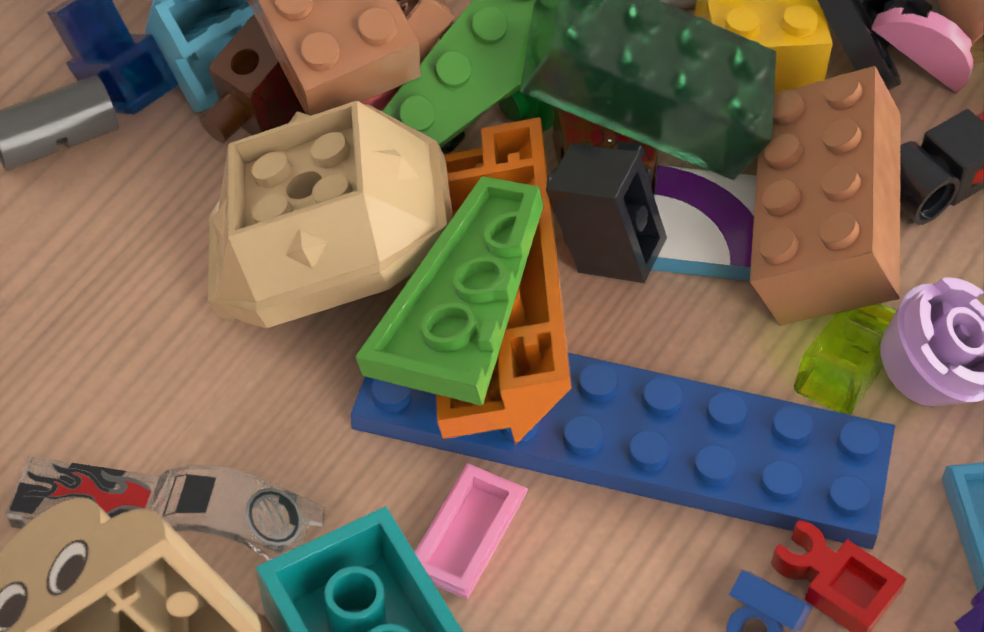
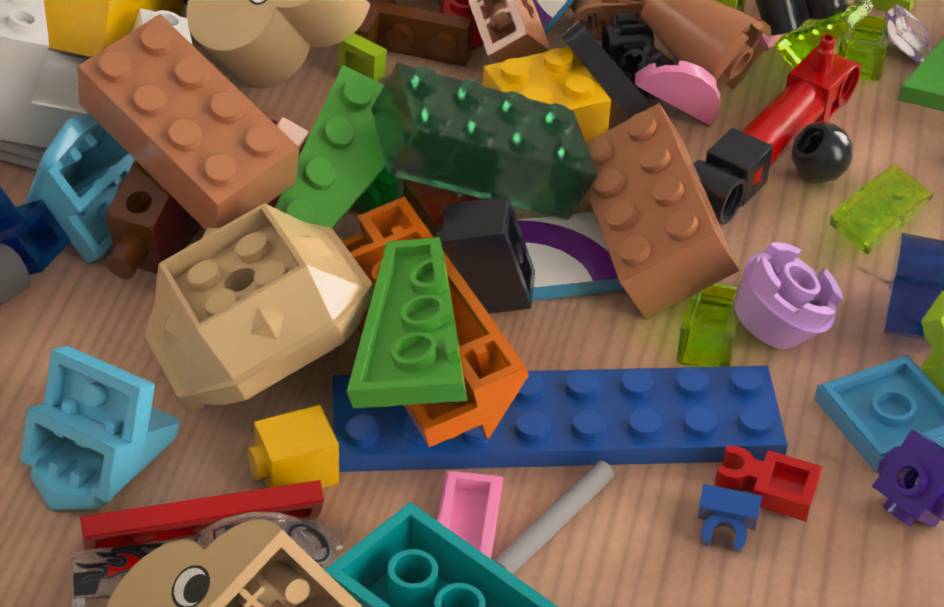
camera: 20 degrees left, 10 degrees down
(101, 323) = (91, 431): none -> medium azure piece
(174, 451) = (189, 517): none -> red tile
(305, 400) = (295, 449): none -> yellow brick
(564, 557) = (555, 517): none -> light grey bar

